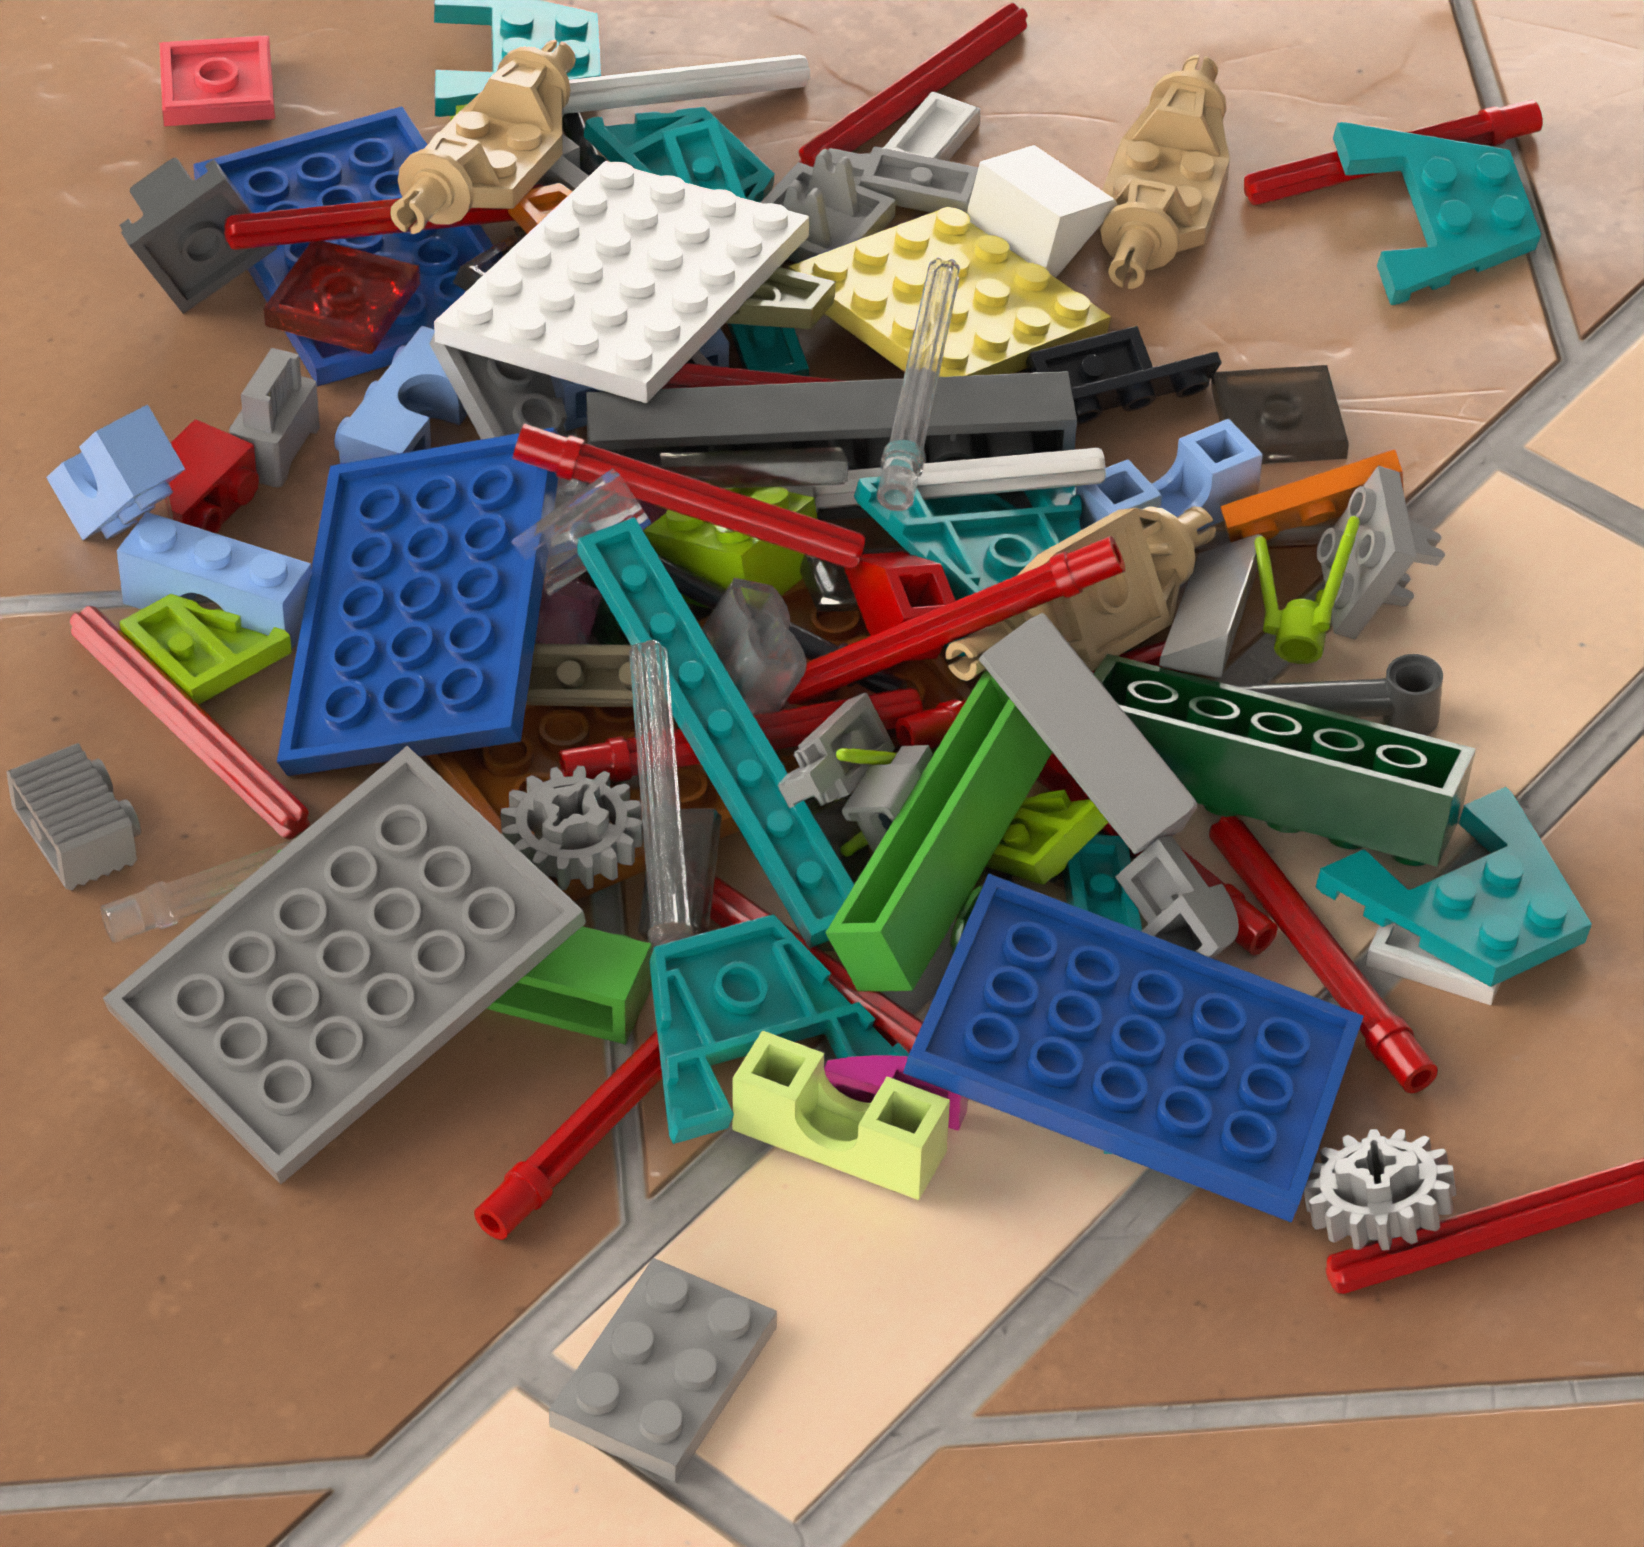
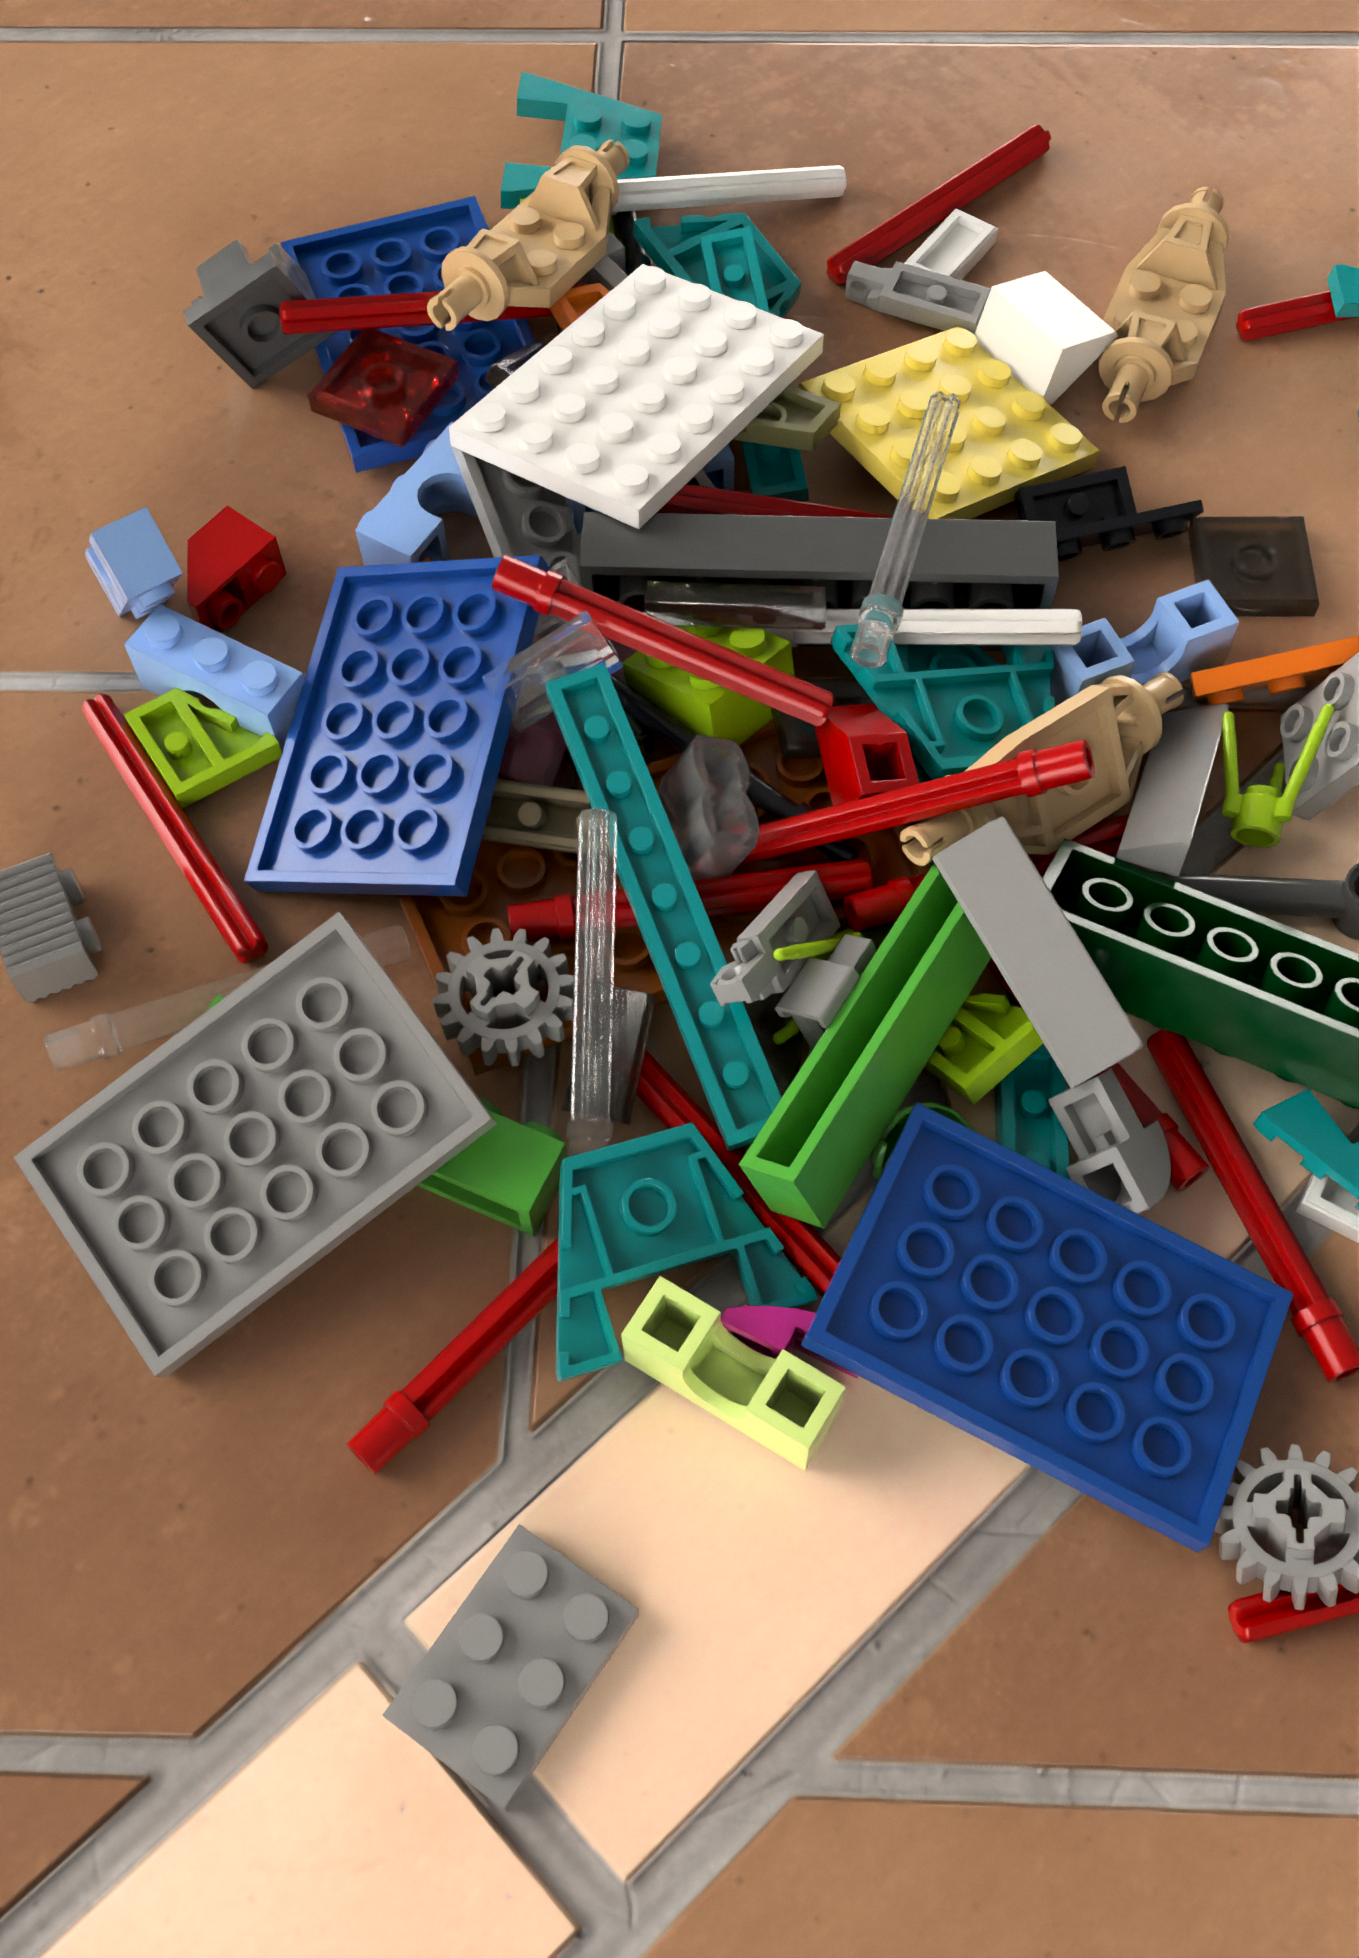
camera: 10 degrees right, 15 degrees up
(216, 81) = (319, 161): coral plate -> none
(277, 415) = (304, 505): light grey piece -> none
(835, 205) = (849, 318): light grey plate -> none

